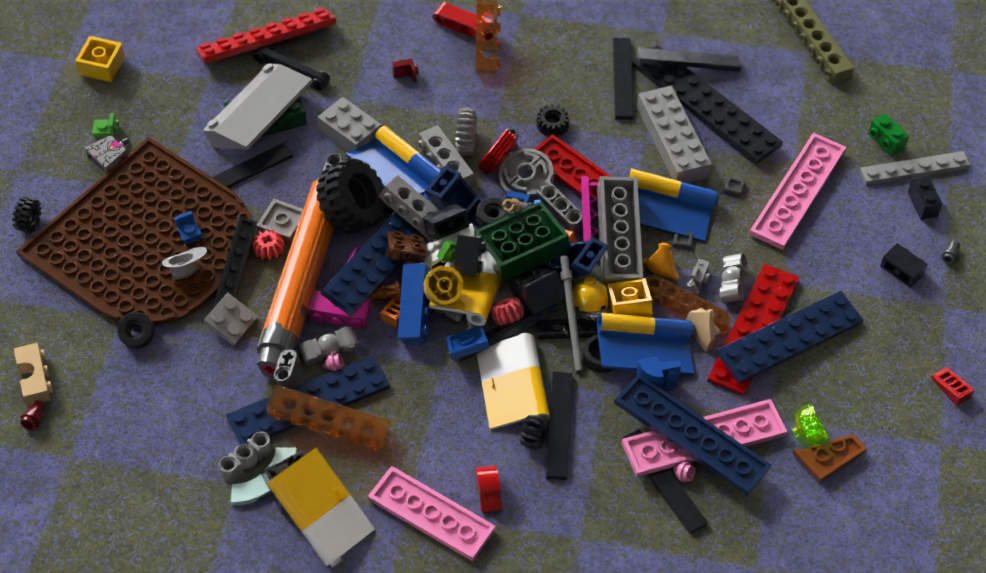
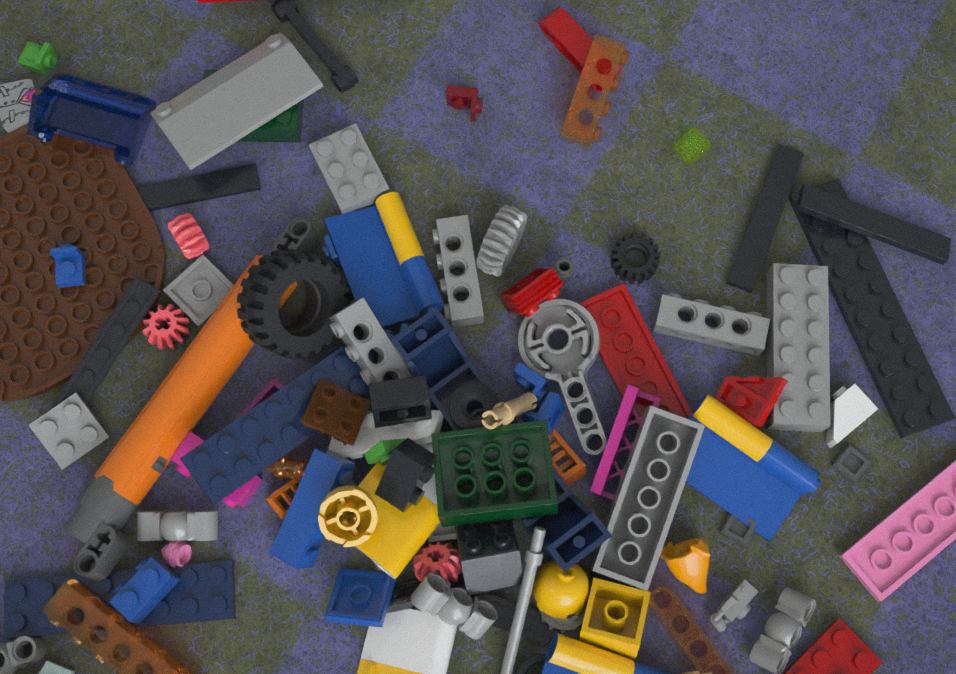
camera: 25 degrees right, 20 degrees up
(166, 144) = (91, 114): none -> clear blue windscreen
(184, 264) = (36, 323): light grey piece -> none
(260, 189) = (188, 235): none -> coral gear
(327, 378) = (144, 590): none -> blue brick
(529, 323) = (454, 606): none -> light grey piece
(560, 53) = (692, 146): none -> clear neon green slope
(616, 140) = (723, 336): none -> light grey brick
(659, 162) = (751, 396): none -> red wing
(720, 158) = (847, 413): none -> white slope

